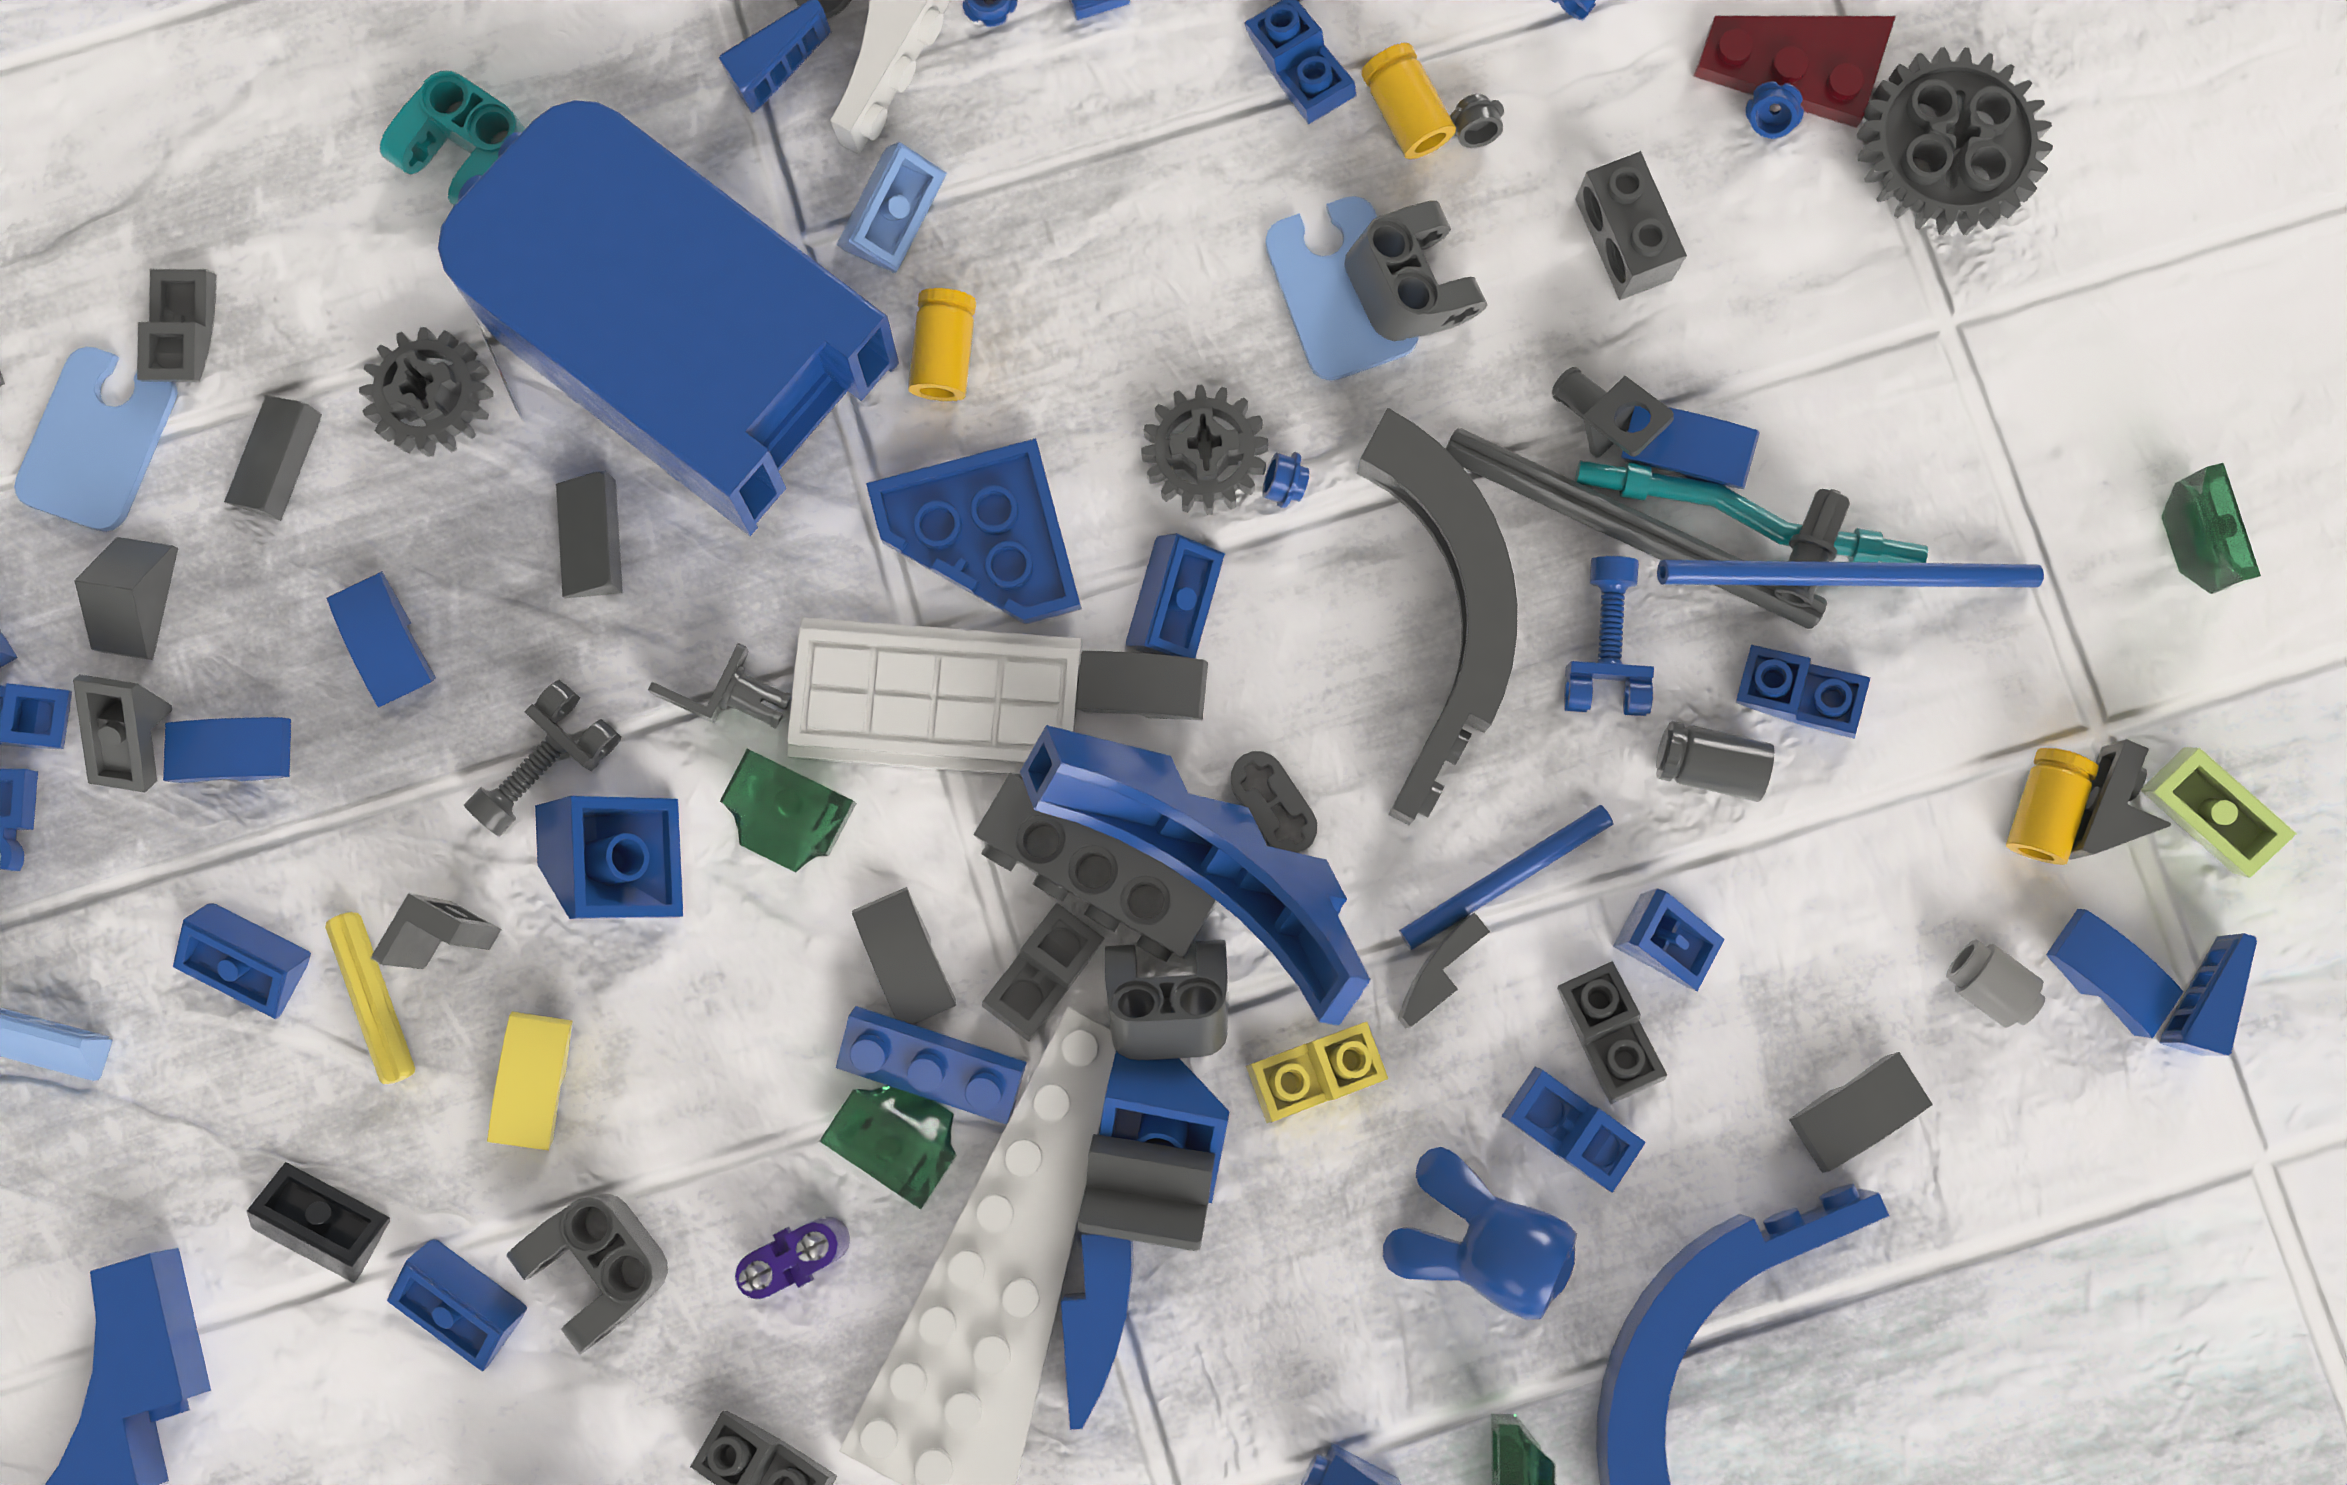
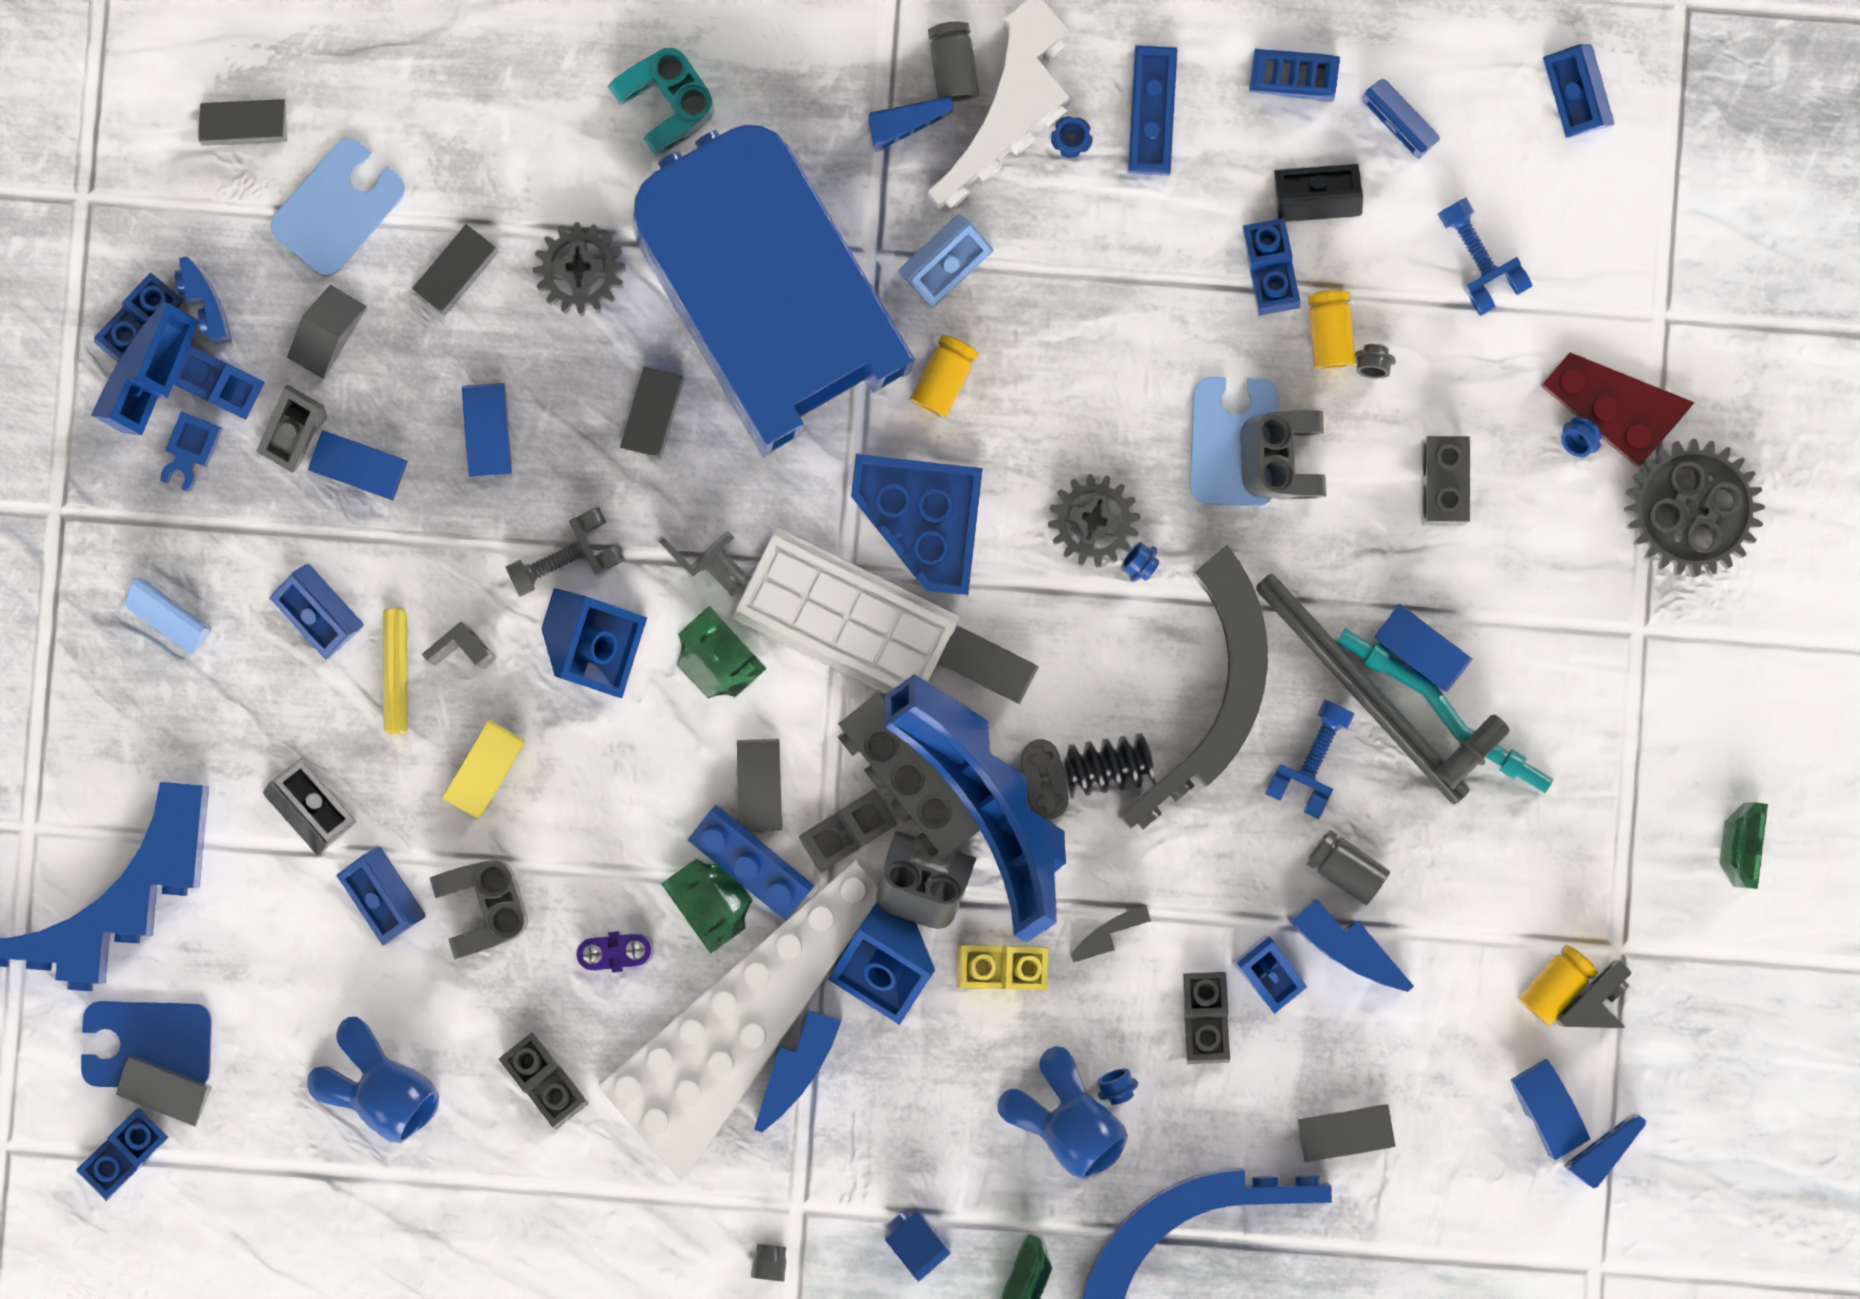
camera: 15 degrees right, 5 degrees up
(179, 325) = (422, 151): dark grey slope -> none
(498, 368) = (634, 272): sticker -> none
(1146, 1192) = (861, 1000): dark grey panel -> none
(1175, 597) = (1033, 613): blue slope -> none
(1350, 749) = (1108, 765): none -> black piece
(1506, 877) = (1179, 889): blue bar -> none
(1533, 1171) = (1117, 1086): none -> blue plate
(1573, 1129) = (1155, 1070): blue slope -> none
(1610, 413) = (1375, 606): dark grey bracket -> none
(1760, 862) = (1348, 947): none -> blue slope
(1802, 692) = (1428, 844): blue slope -> none
(1848, 574) = (1487, 781): blue piece -> none
(1997, 984) = (1470, 1085): light grey brick -> none
(2218, 811) = (1660, 1031): yellowish green brick -> none

